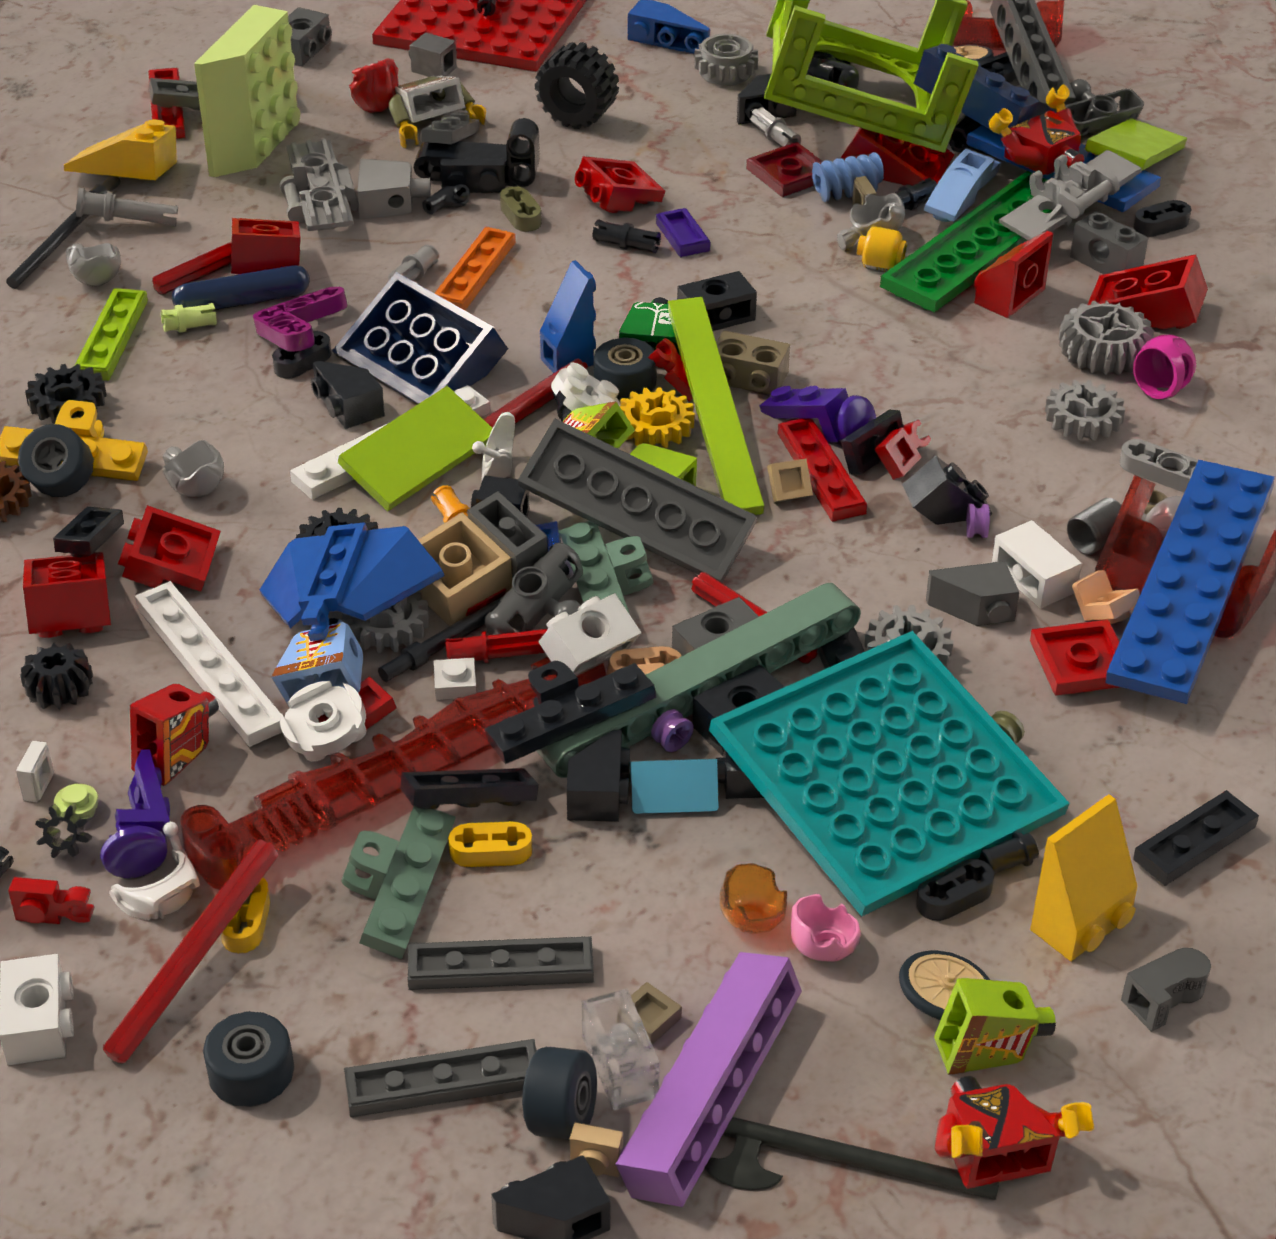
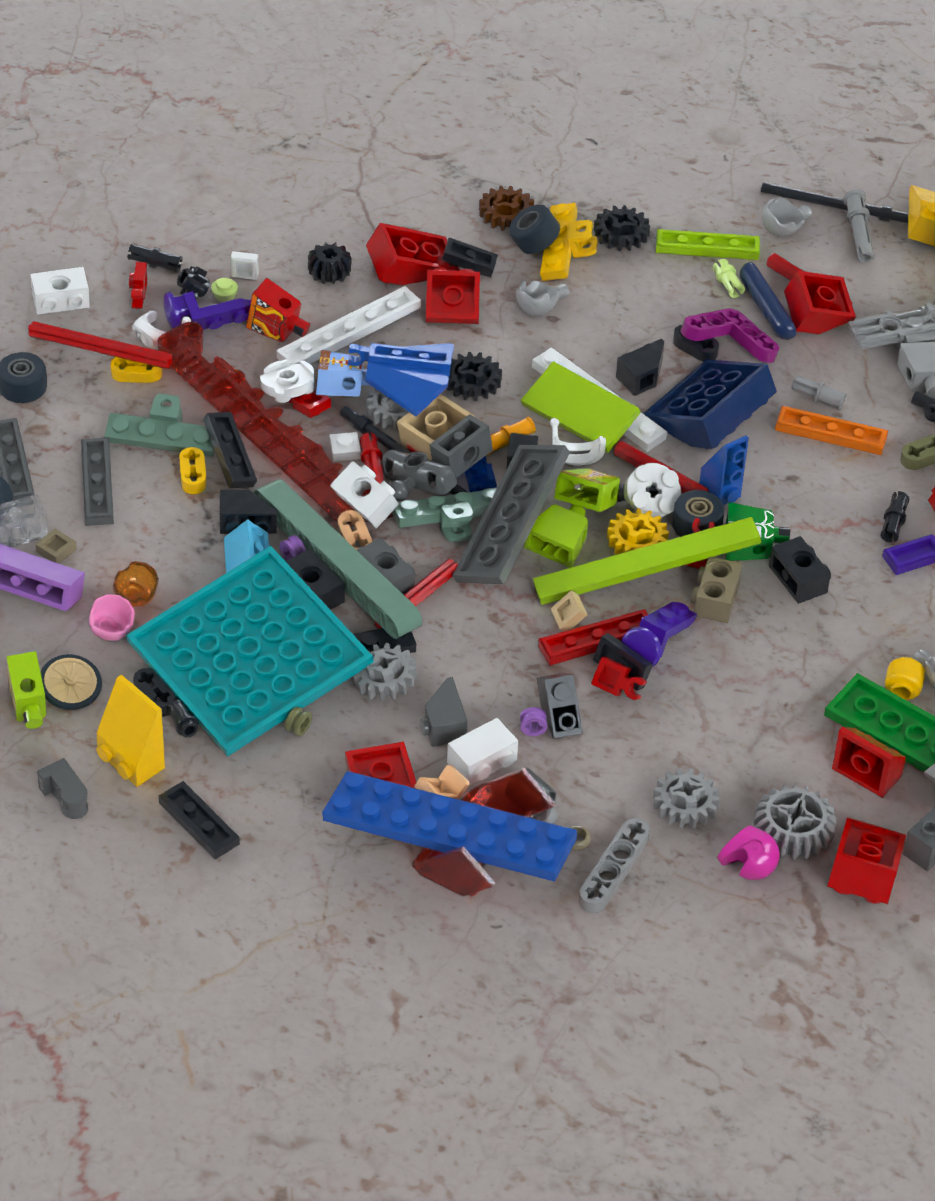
camera: 85 degrees right, 5 degrees up
(567, 708) = (294, 485): black plate -> none

